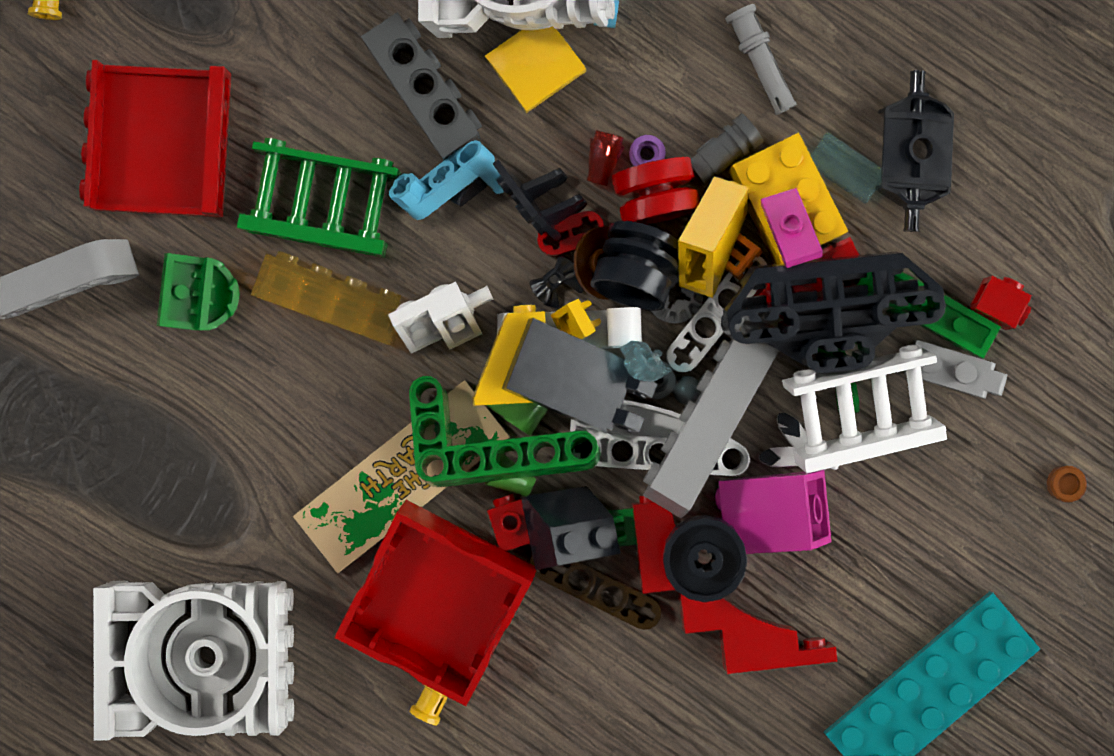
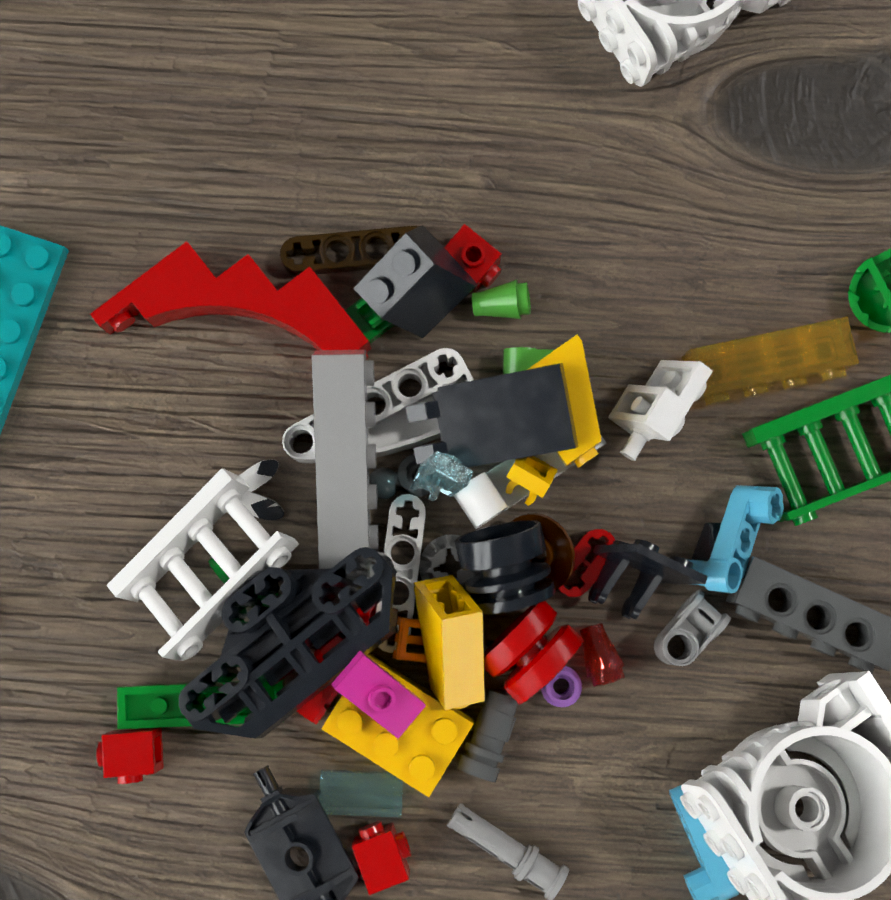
camera: 145 degrees right, 5 degrees down
(365, 500) = (598, 241): tan tile -> none
(429, 706) = (443, 61): yellow bush -> none
(436, 602) = (497, 143): red tile -> none
(489, 452) = (532, 302): green beam -> none
(521, 134) = (696, 625): none -> light grey piece
(535, 65) = (722, 703): yellow slope -> none
(545, 287) = (576, 497): black piece -> none
(704, 580) = (265, 303): black wheel -> none
(777, 511) = (230, 415): dark pink slope -> none
(858, 112) = (381, 856): none -> red brick
(962, 372) = (131, 662): light grey hinge -> none

